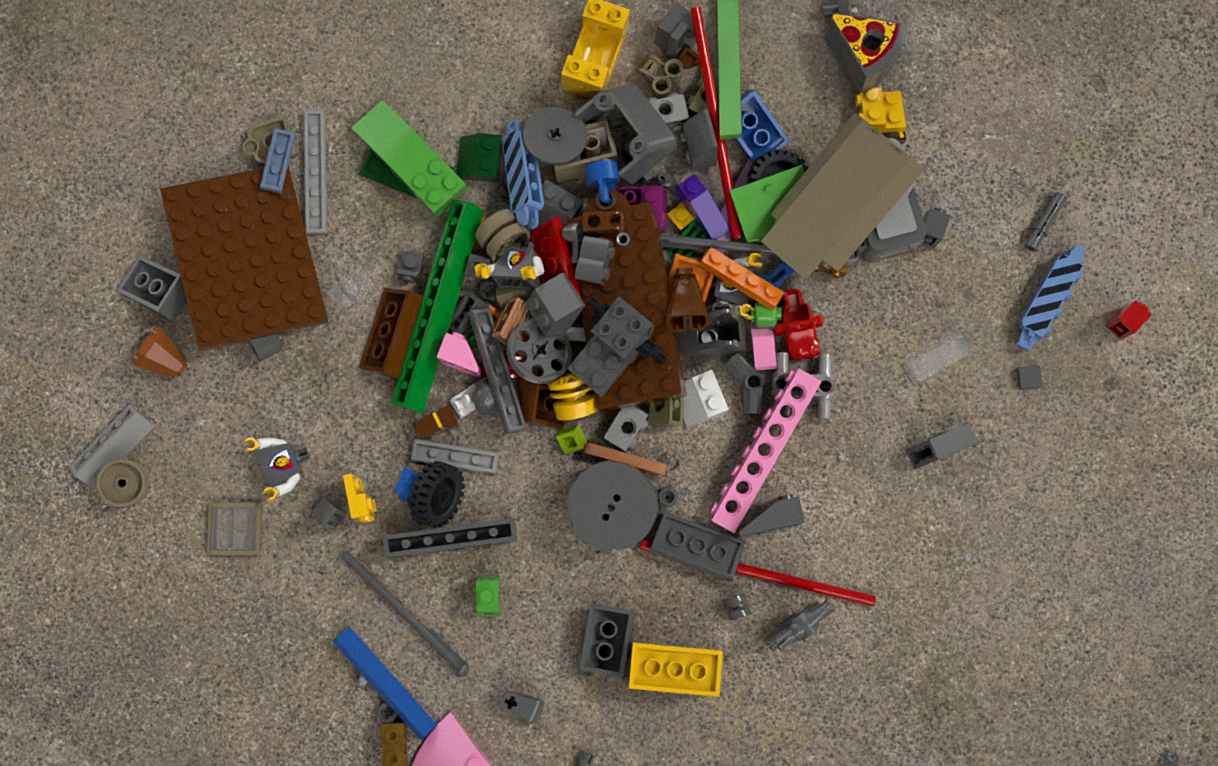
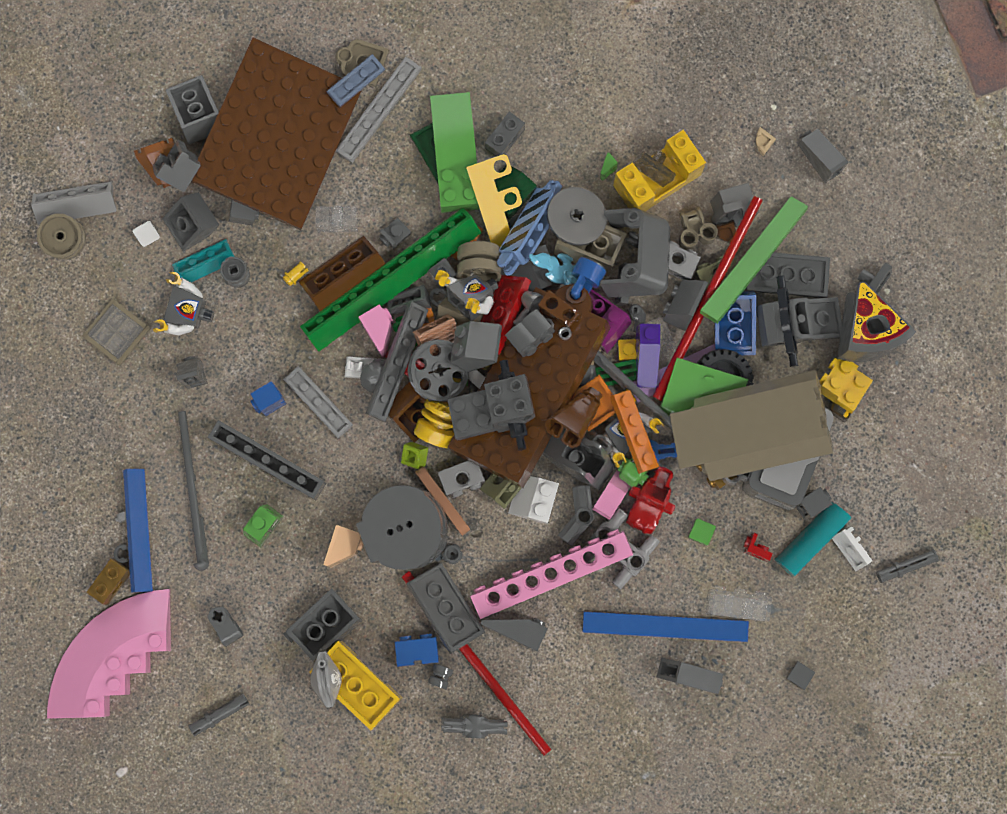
camera: 40 degrees right, 0 degrees up
(180, 347) = (177, 167): none -> dark grey plate
(195, 425) = (146, 233): none -> white slope
(225, 386) = (190, 221): none -> dark grey slope
(265, 411) = (203, 262): none -> teal slope
(299, 400) = (235, 272): none -> dark grey wheel
(351, 363) = (295, 274): none -> yellow pin
(360, 505) = (219, 384): yellow plate -> none
(436, 494) = (280, 419): black wheel -> none
(438, 420) = (324, 365): reddish brown leg -> none
(440, 114) = (505, 135): none -> dark grey brick
(470, 175) = (490, 200): none -> yellow piece
(548, 76) = (609, 166): none -> bright green slope
(572, 560) = (343, 546): none -> light nougat slope
(576, 195) = (557, 273): none -> medium azure piece
(589, 48) = (654, 167): none -> clear smoke tile
(648, 683) = (325, 679): none -> light grey hat
(700, 600) = (420, 649): none -> blue brick
(771, 53) = (803, 275): none -> dark grey plate
(803, 87) = (797, 320): none -> dark grey piece
(858, 321) = (701, 532): none -> bright green piece
(889, 422) = (665, 626): none -> blue tile
(918, 300) = (759, 551): none -> red bracket
(953, 259) = (812, 539): none -> teal brick
(991, 241) = (852, 549): none -> white plate
(1049, 297) = (863, 626): medium blue hinge -> none
(1129, 319) = (911, 690): red brick -> none

